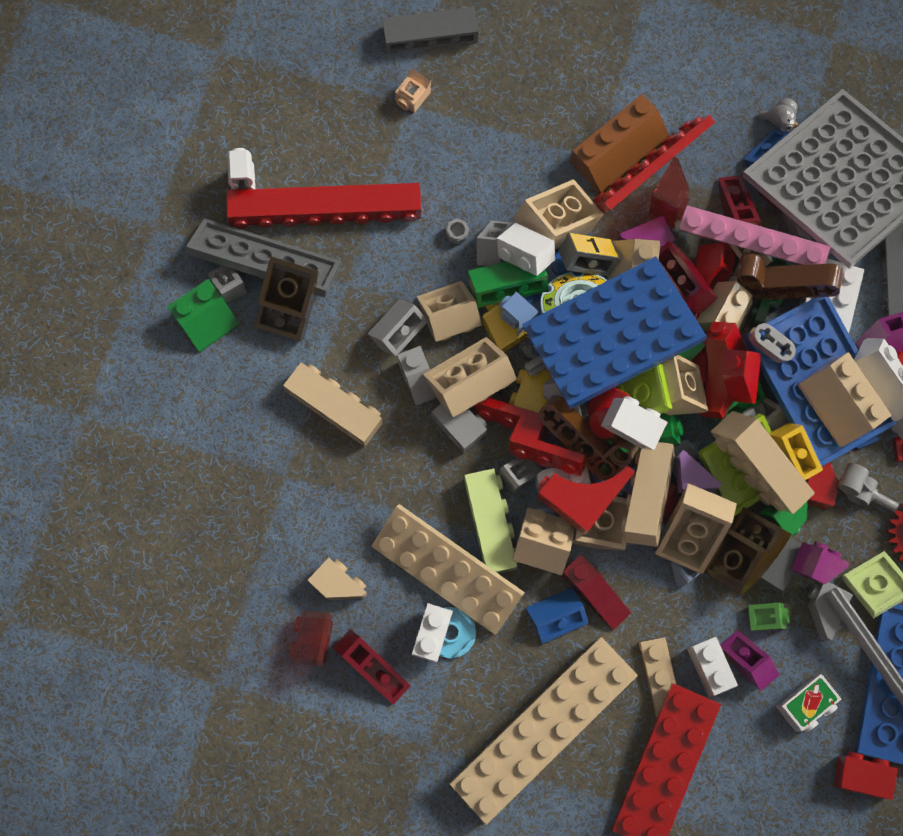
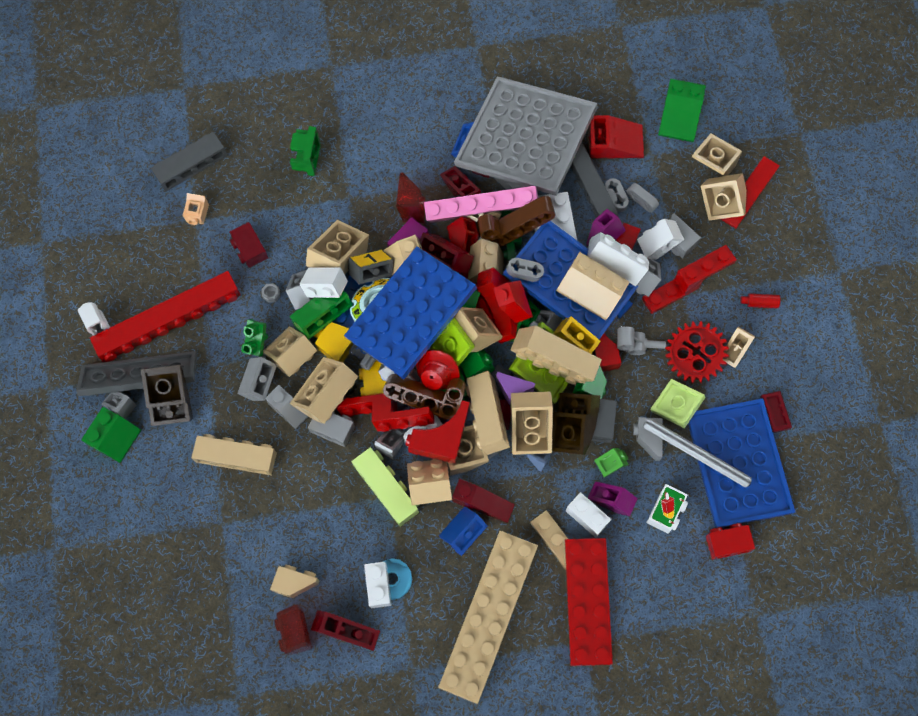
camera: 15 degrees left, 5 degrees down
(416, 277) = (255, 336): none -> green hips
(447, 569) = (369, 534): tan plate -> none
(456, 162) = (248, 244): none -> dark red brick
(516, 311) = (336, 328): medium blue window -> none
(576, 74) = (308, 148): none -> green panel
(619, 144) = (360, 181): dark orange slope -> none
(634, 423) = (452, 368): white brick -> none
(654, 161) = (387, 184): red plate -> none
(782, 115) = (464, 112): light grey animal -> none
(818, 562) = (628, 407): magenta slope -> none

